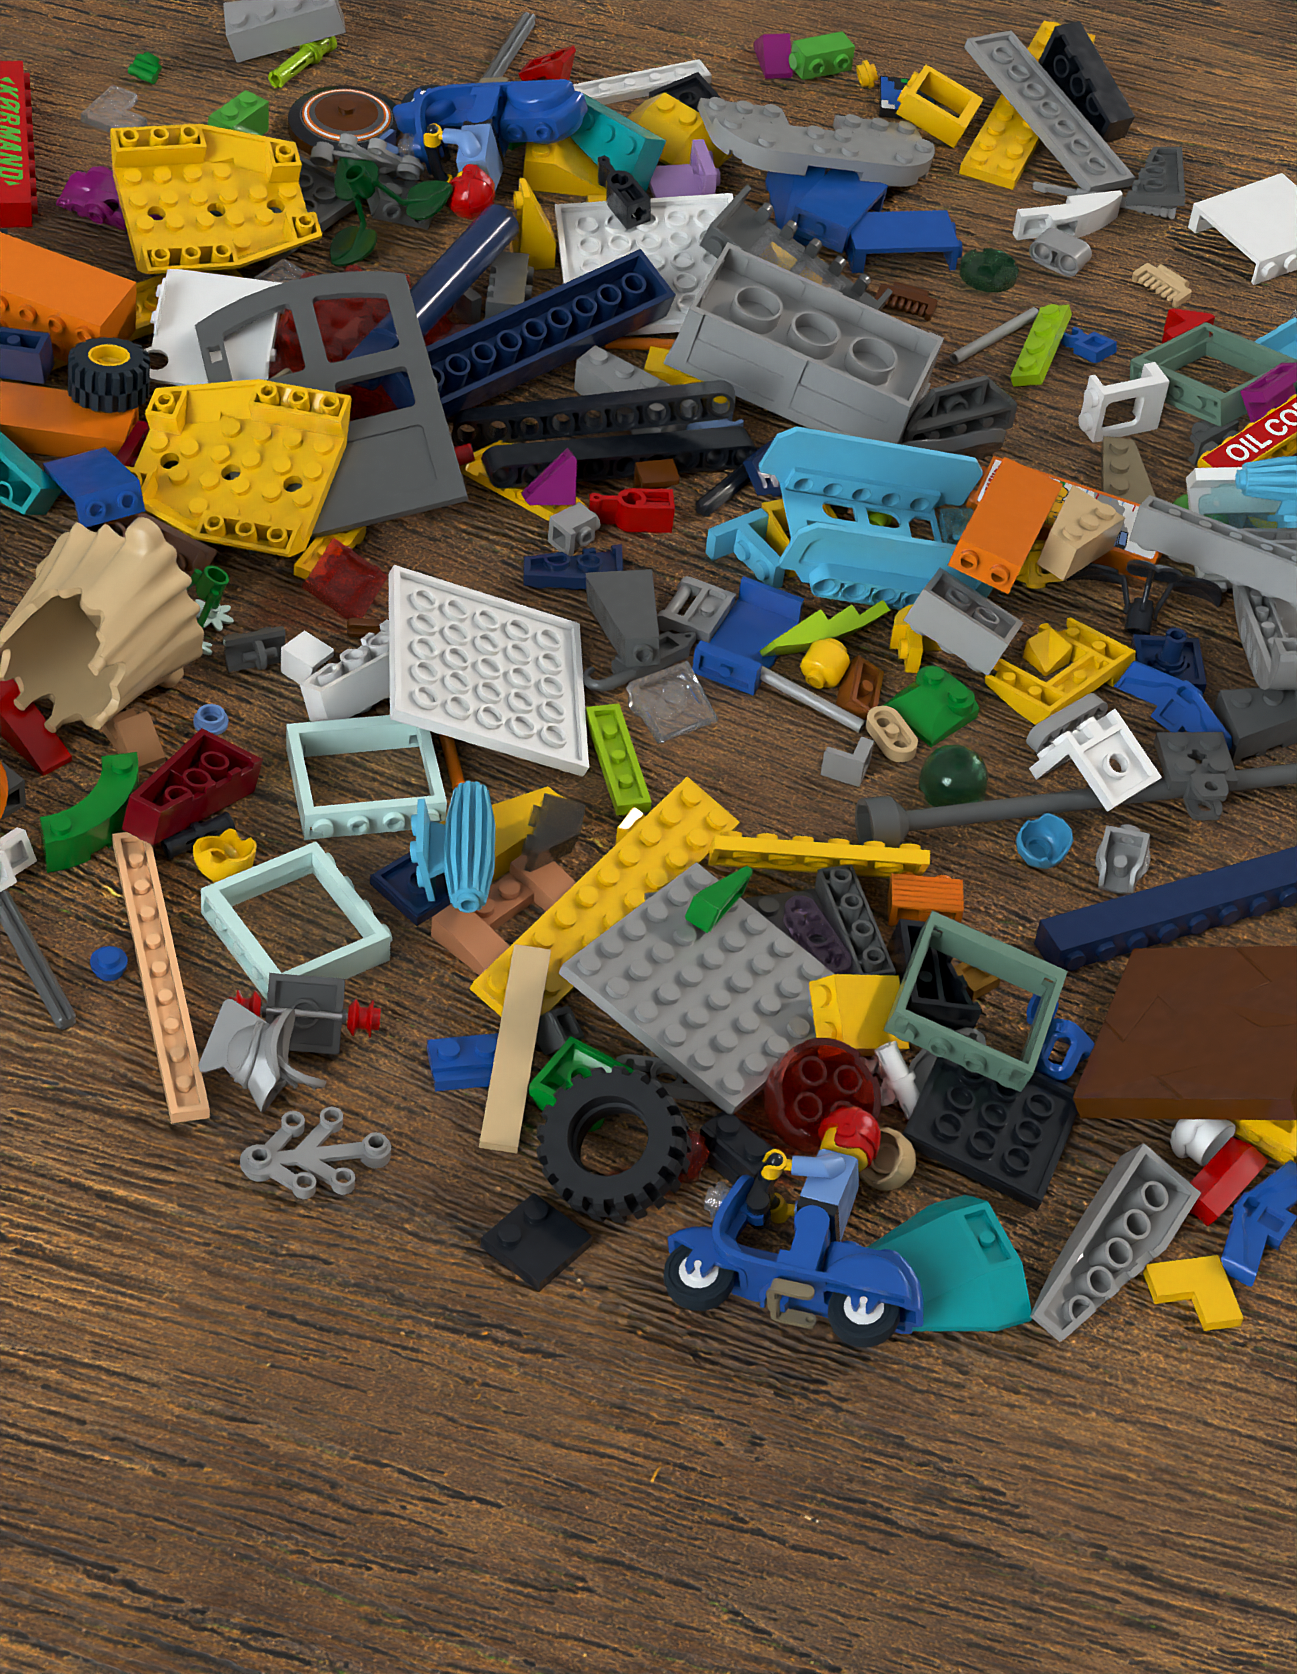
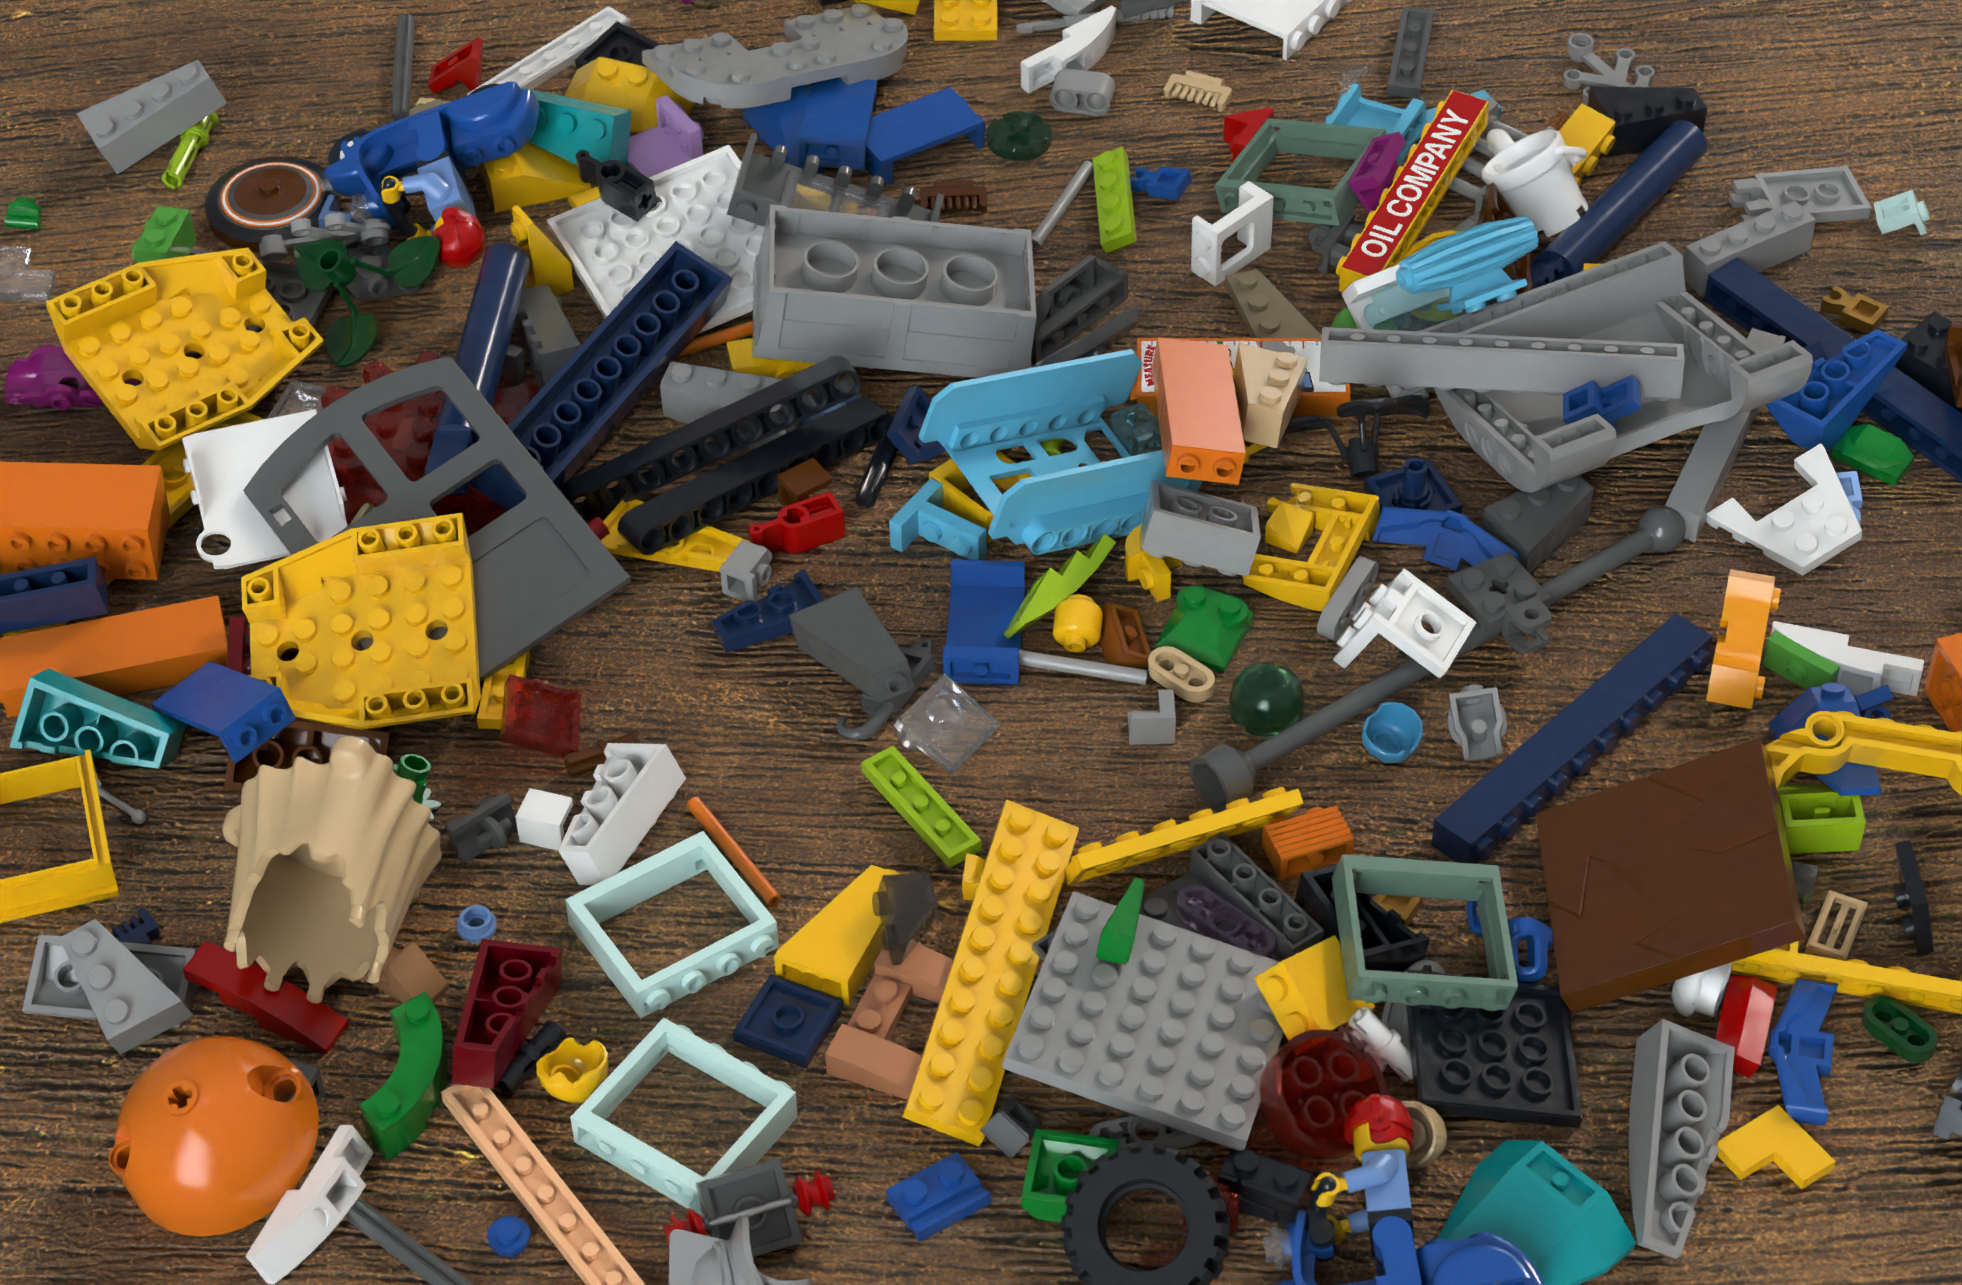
camera: 15 degrees left, 0 degrees up
(108, 374) = (177, 579): black wheel -> none
(459, 848) = (821, 968): medium azure plate -> none
(486, 671) = (746, 763): white plate -> none
(515, 1049) = (984, 1164): tan tile -> none
(555, 484) = (709, 528): magenta slope -> none
(704, 613) = (927, 611): light grey plate -> none

